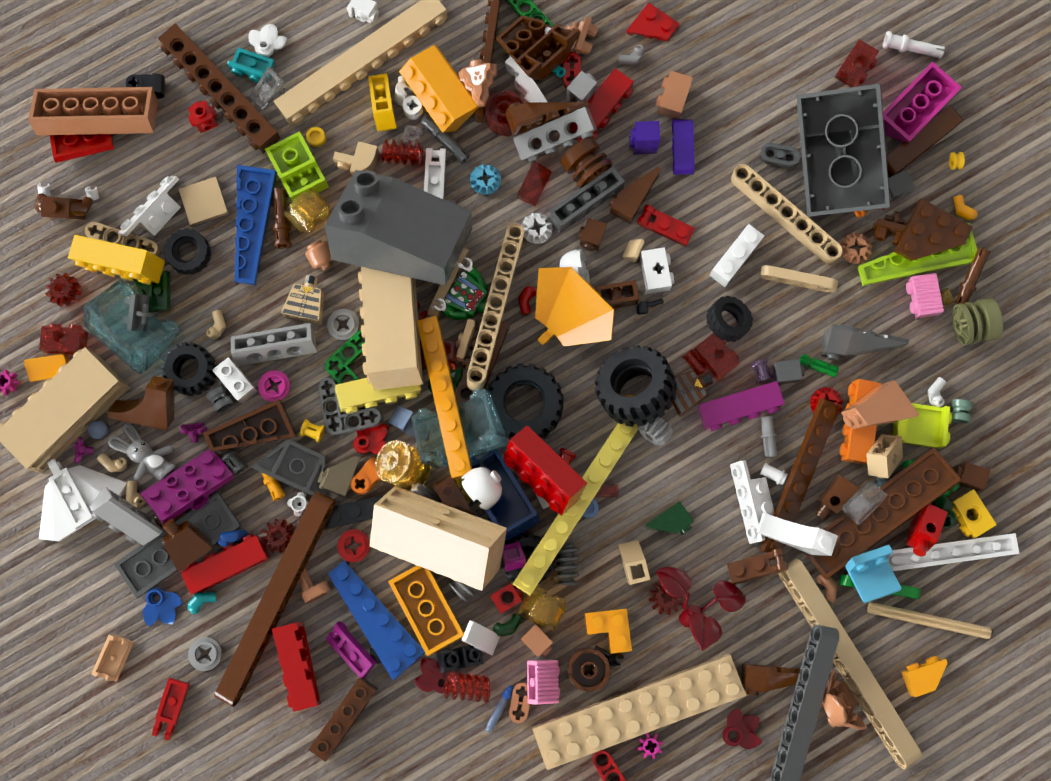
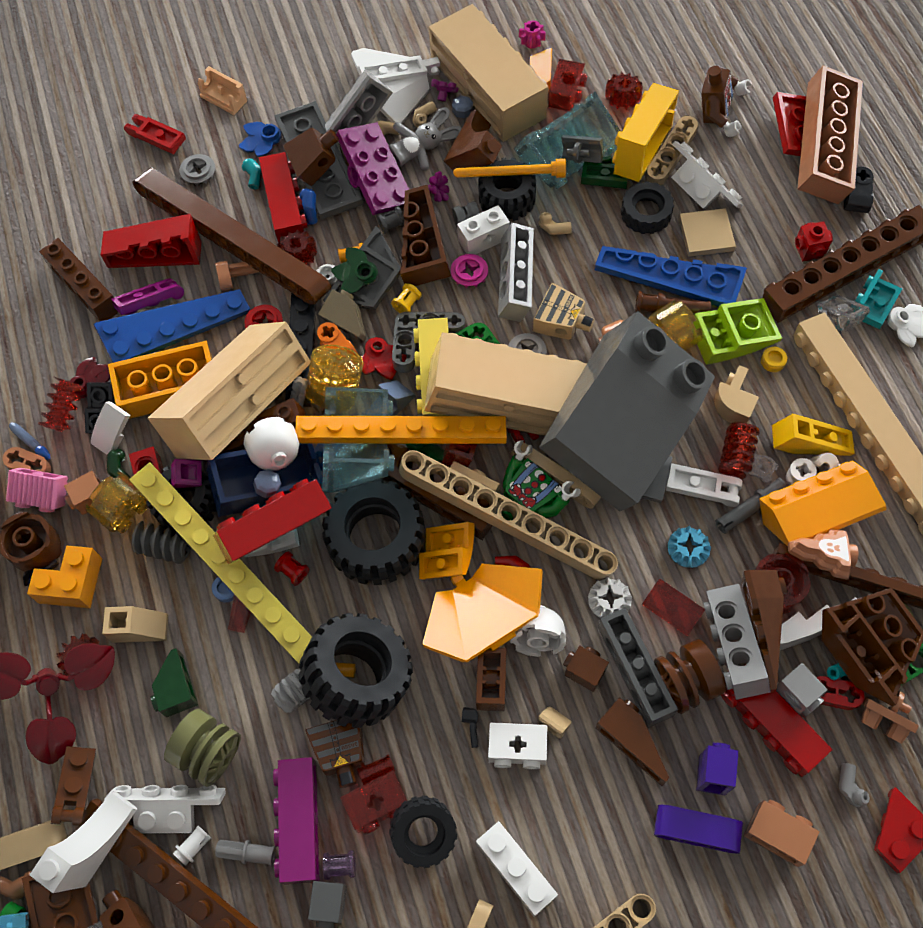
camera: 105 degrees right, 15 degrees down
(170, 326) = (556, 168): none -> light orange piece
(296, 479) = (352, 271): none -> dark green plate
(512, 485) = (267, 483): none -> sand blue tile
(529, 346) = (447, 551): none -> light orange slope
(666, 226) = (581, 778): red plate -> none
(711, 481) = (202, 747): none -> olive wheel

